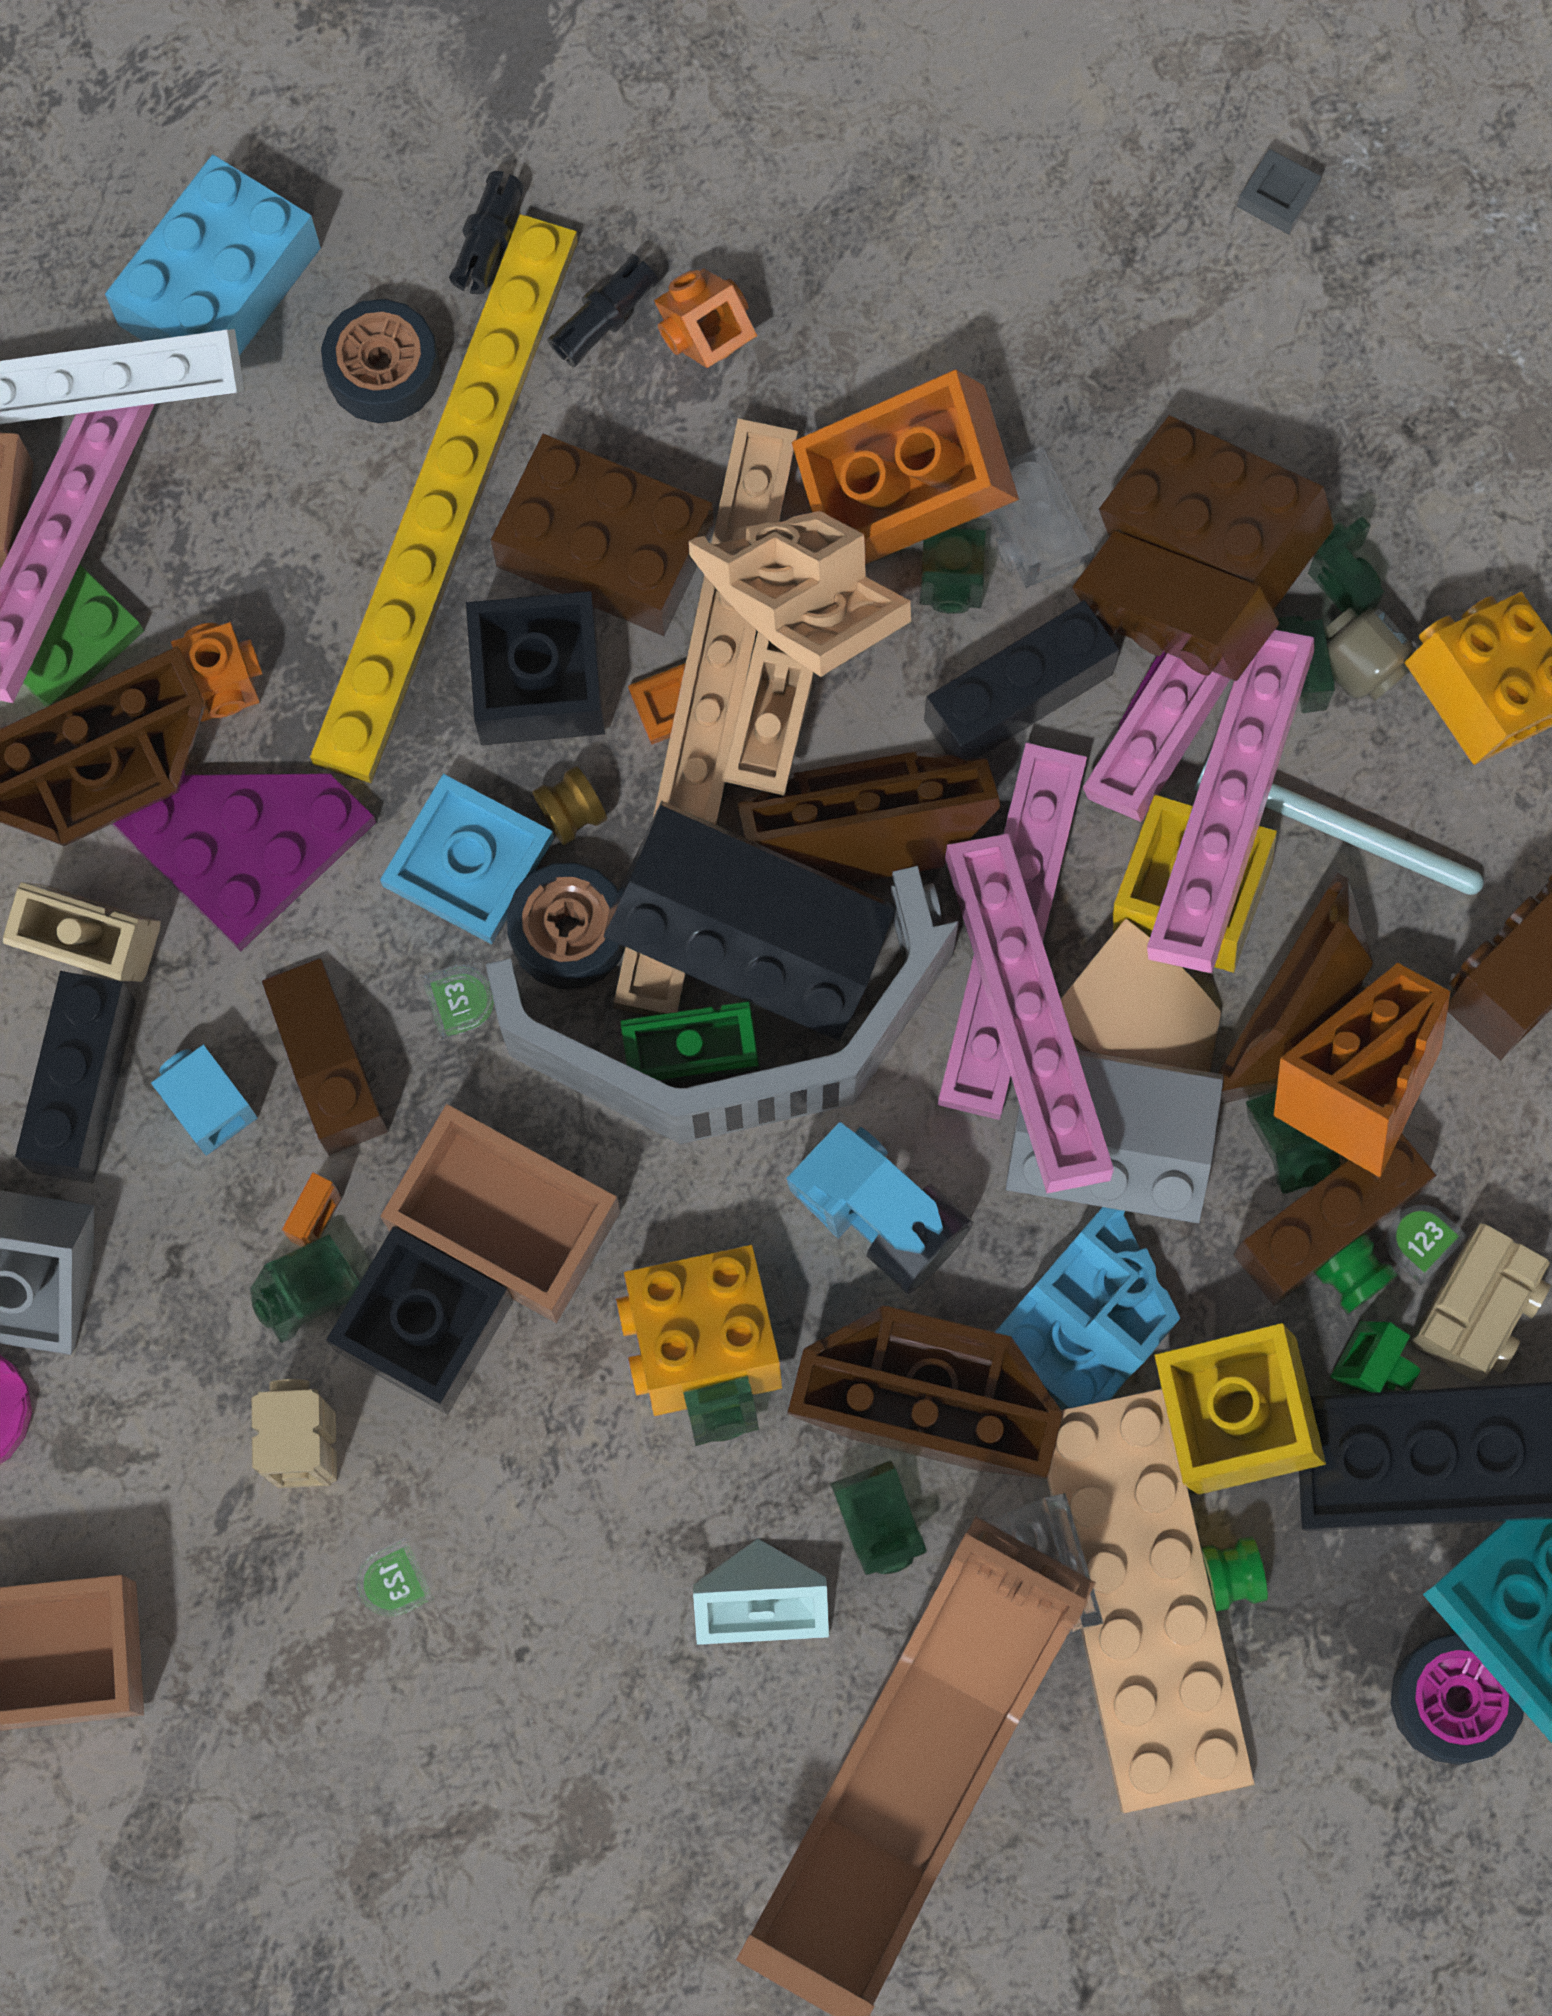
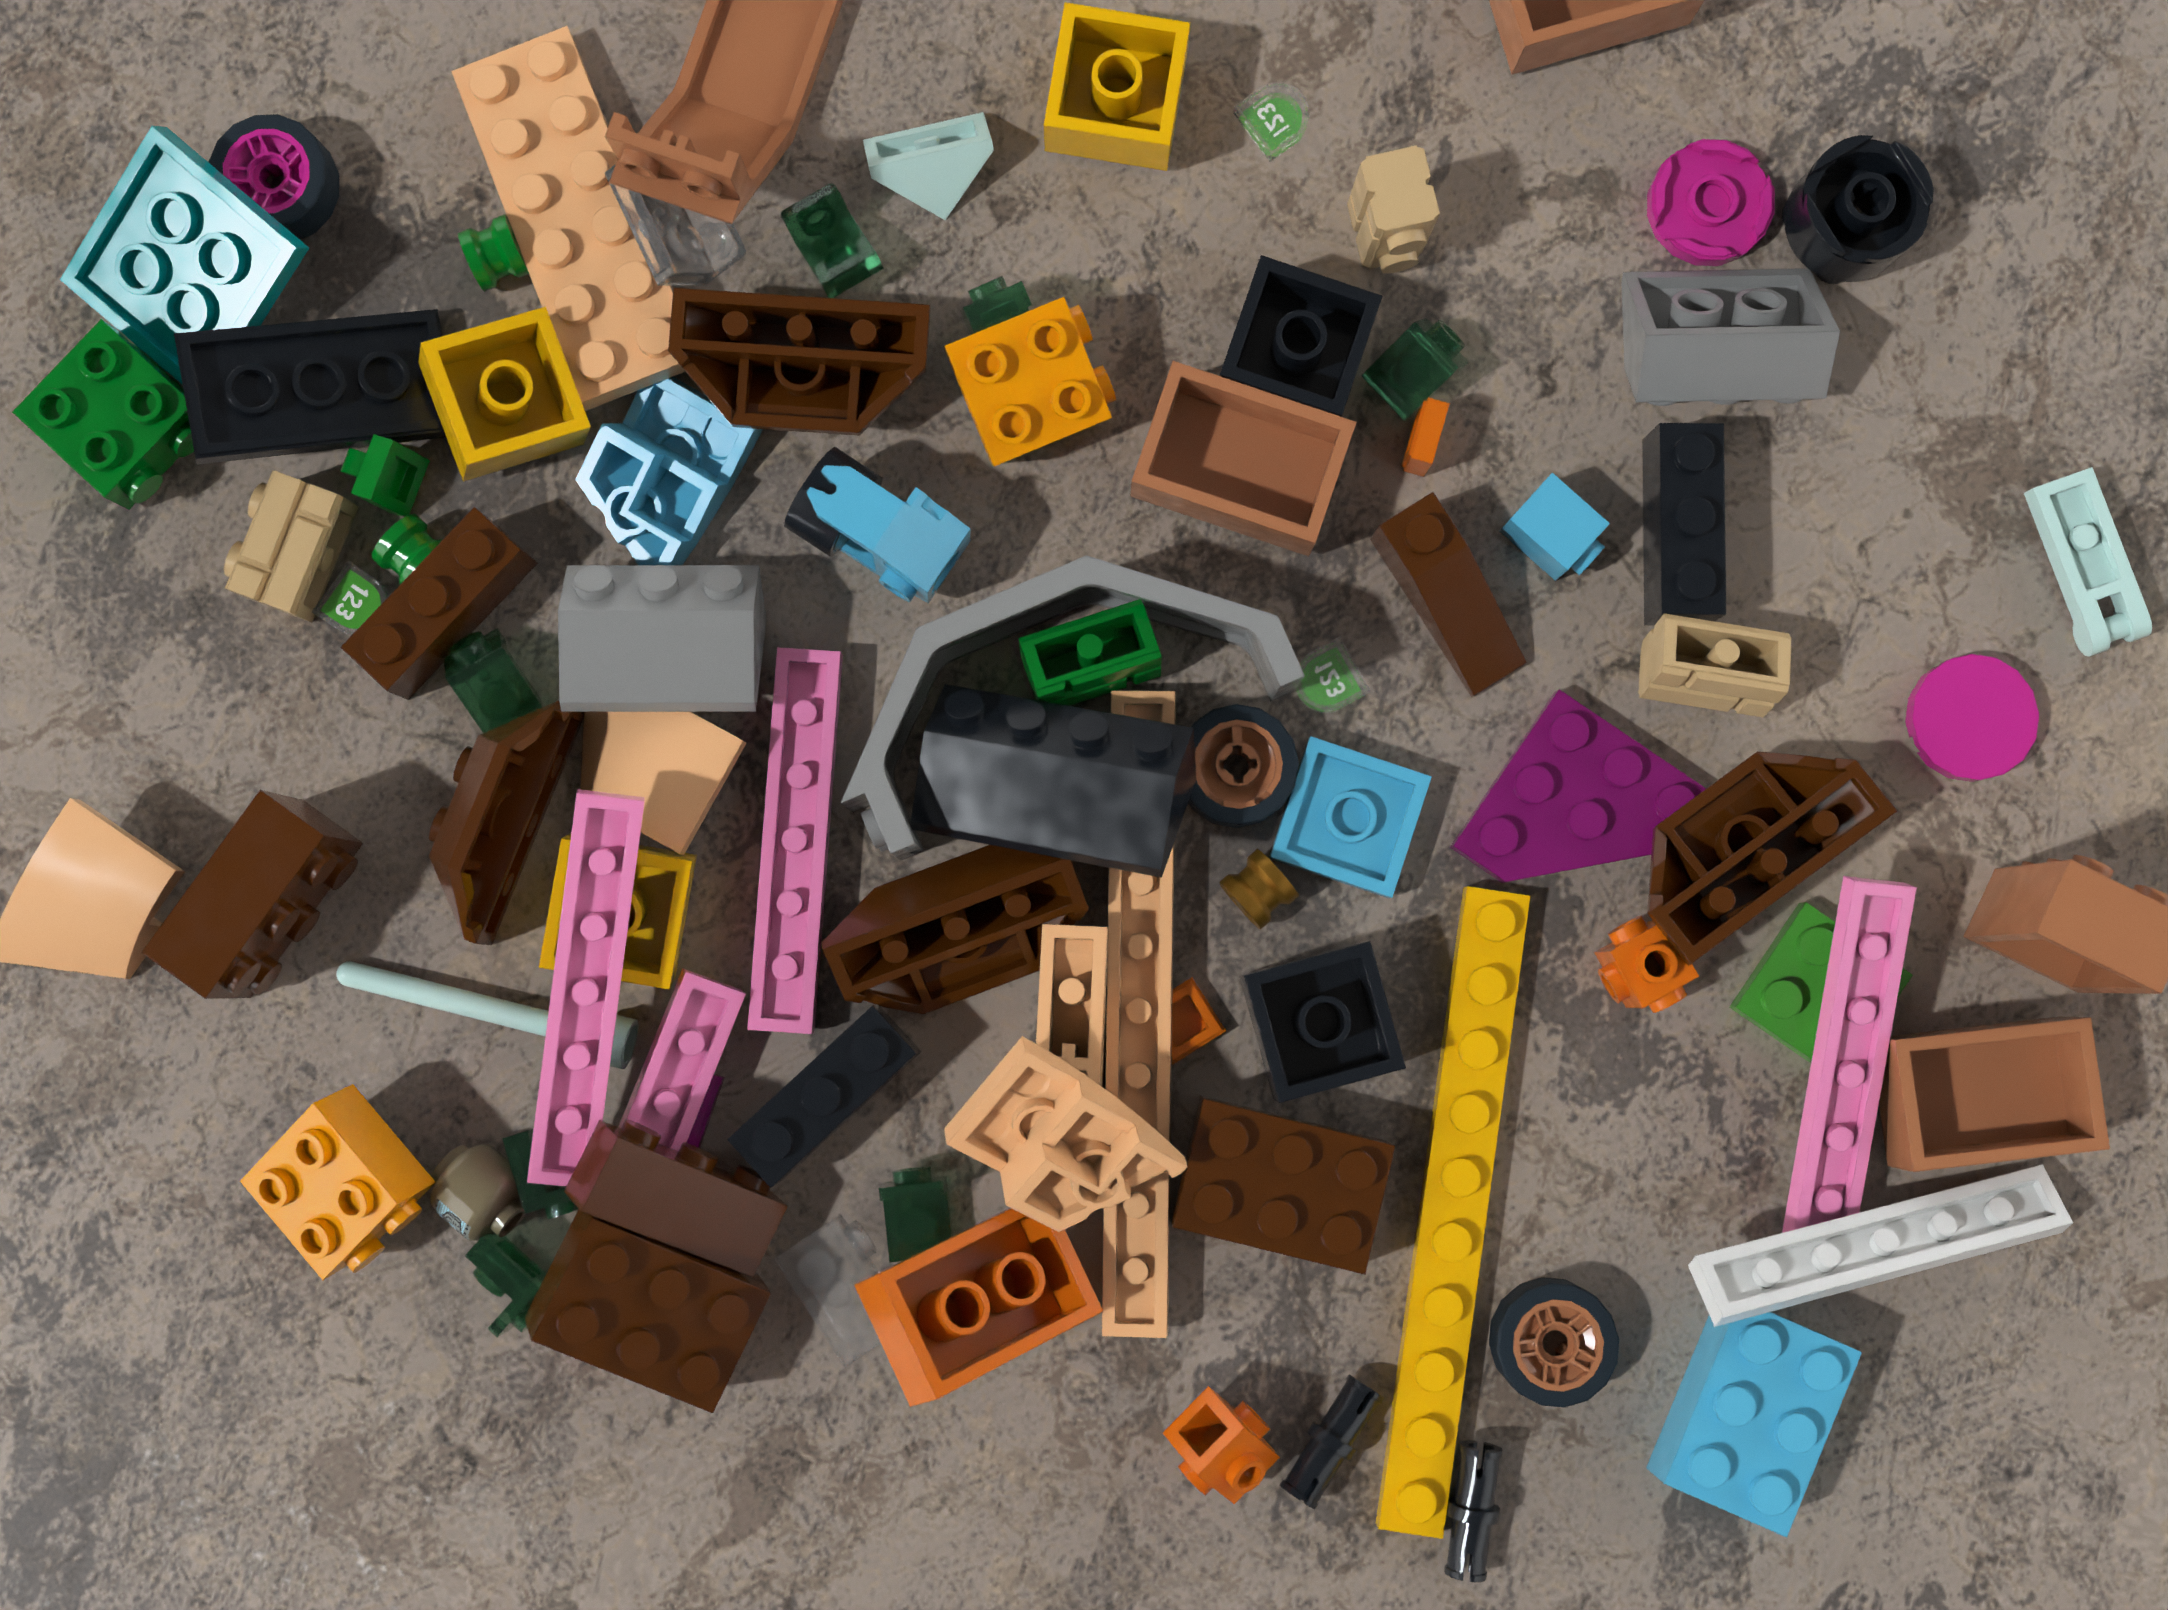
camera: 170 degrees right, 10 degrees up
(551, 1625) = (1116, 86): none -> yellow brick
(1028, 1014) = (759, 730): bright pink plate -> none
(1365, 1068) = (417, 735): orange wedge -> none

